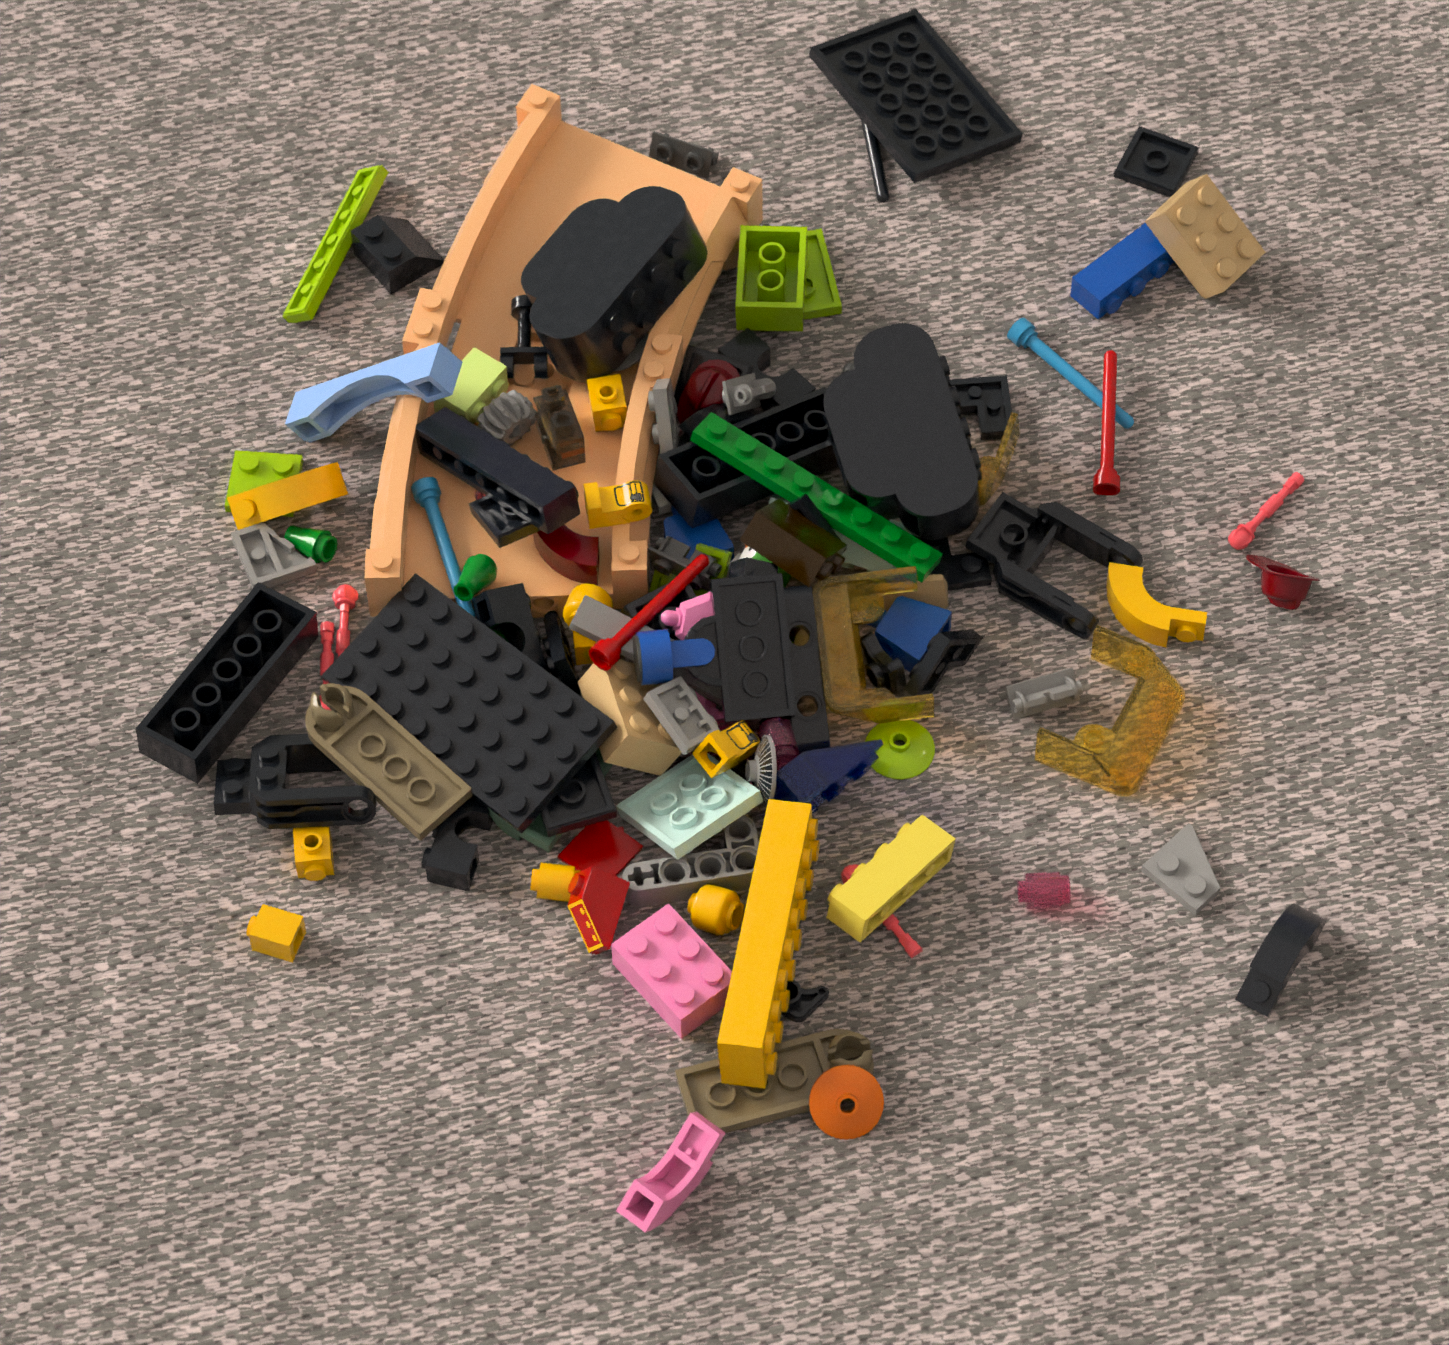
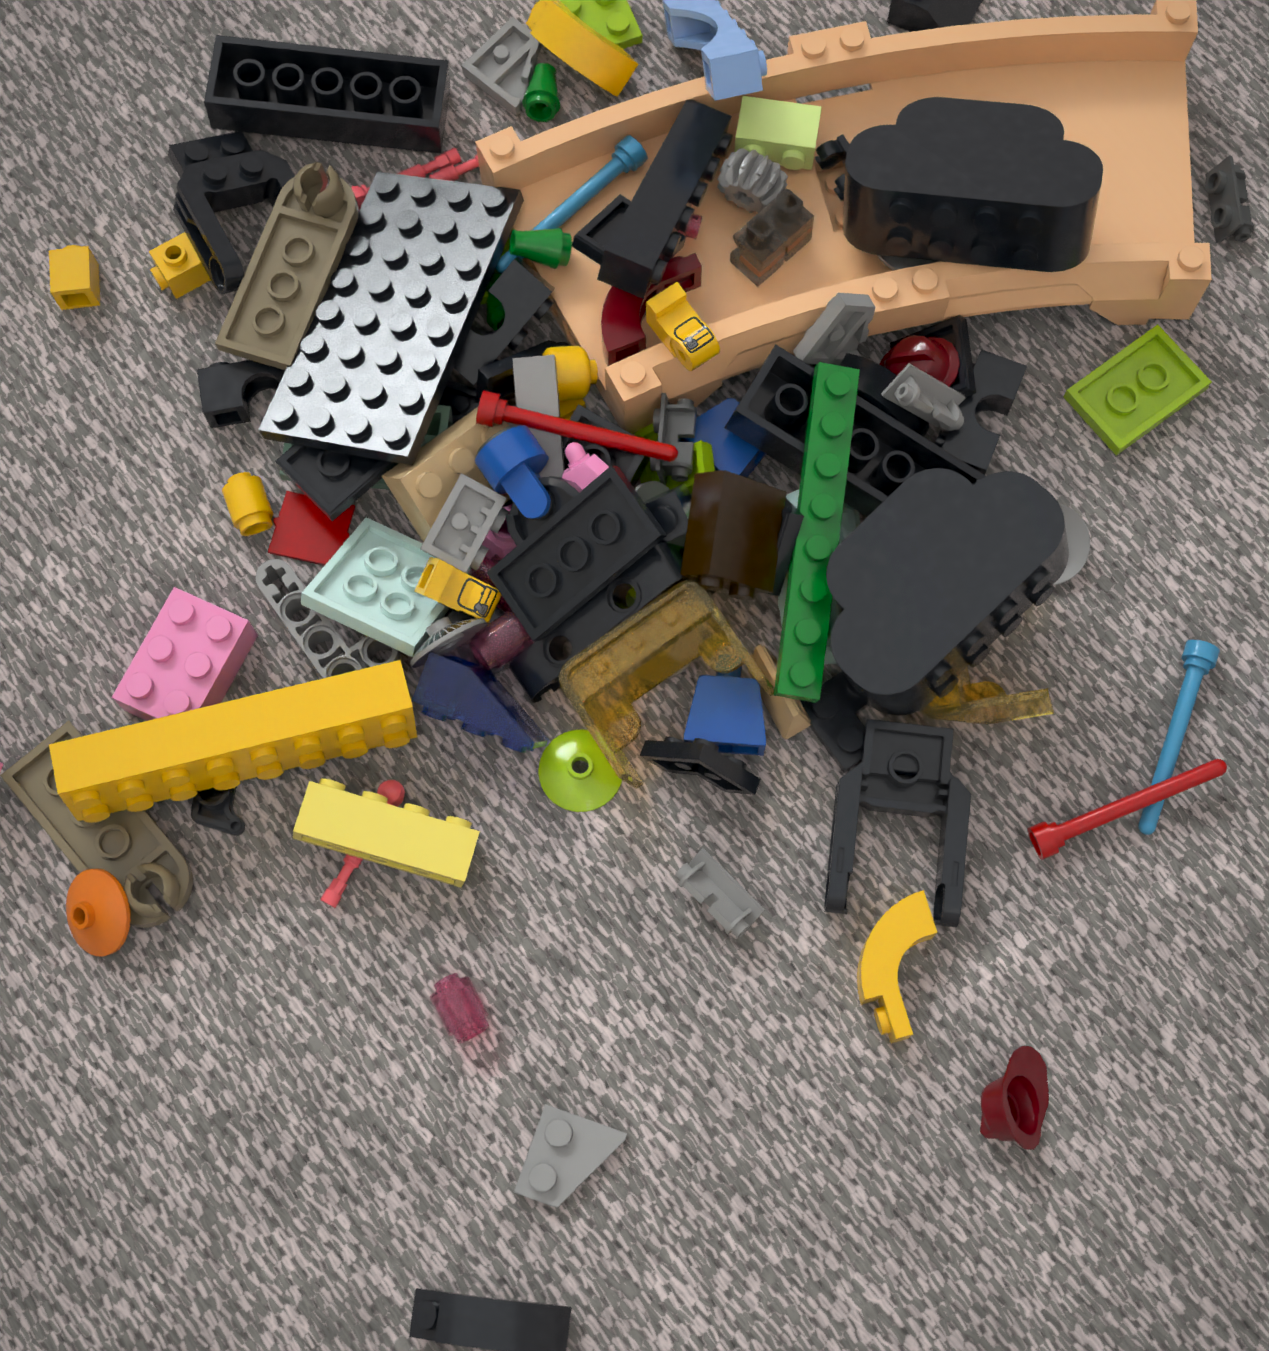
camera: 65 degrees right, 15 degrees up
(596, 906) = (225, 552): red slope -> none
(607, 402) = (832, 263): yellow brick -> none
(715, 909) = (279, 666): yellow head -> none
(771, 278) = (1100, 356): lime brick -> none
(880, 667) = (661, 704): black piece -> none
(987, 398) = (1086, 656): black plate -> none
(1119, 756) = (724, 1023): clear yellow windscreen -> none
(1244, 533) = (1056, 1028): coral piece -> none

